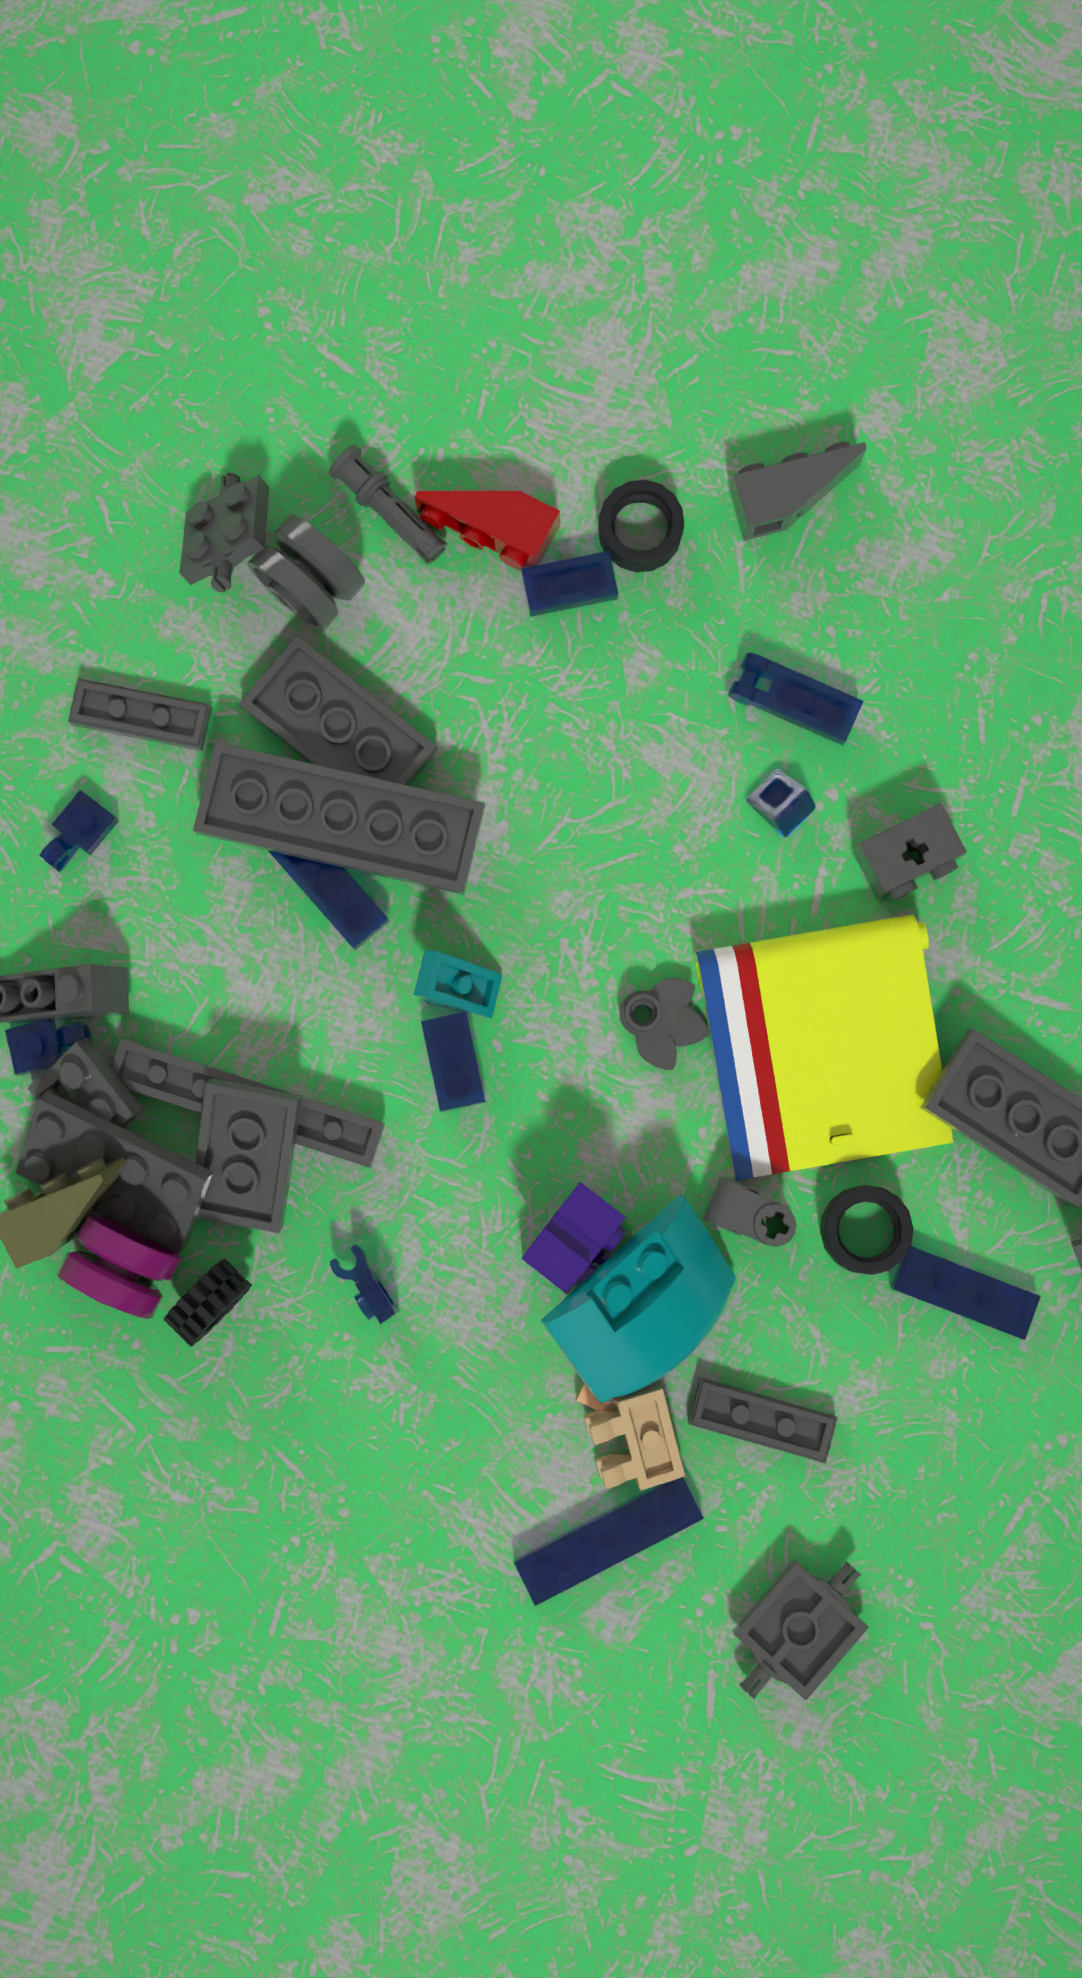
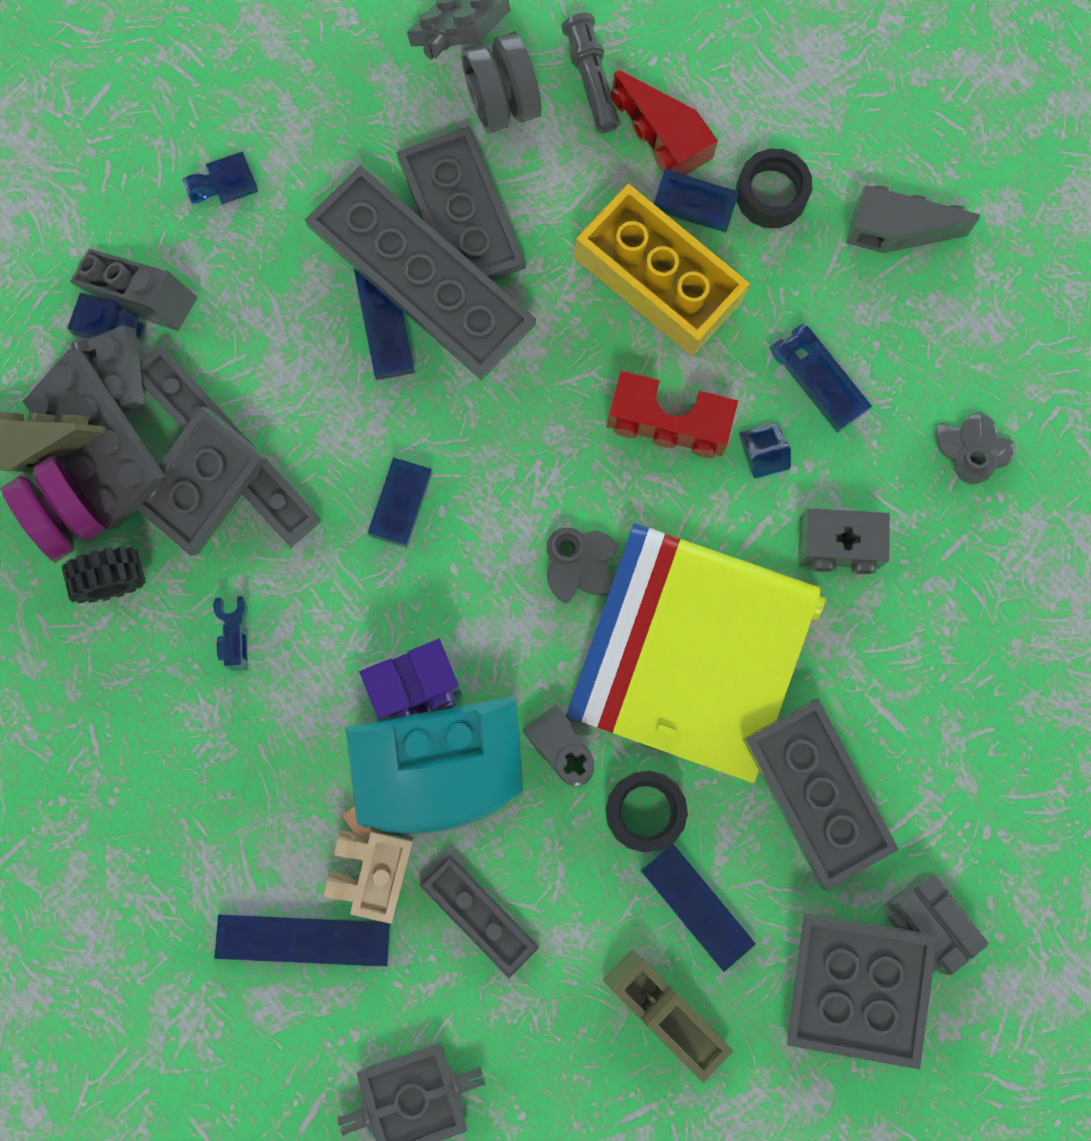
camera: 20 degrees right, 5 degrees down
(140, 714) = (320, 124): dark grey tile -> none
(457, 984) = (436, 444): teal slope -> none
(577, 679) = (660, 269): none -> yellow brick
(634, 837) = (637, 412): none -> red arch
(984, 678) = (977, 443): none -> dark grey plate
(994, 1411) = (667, 1015): none -> olive slope

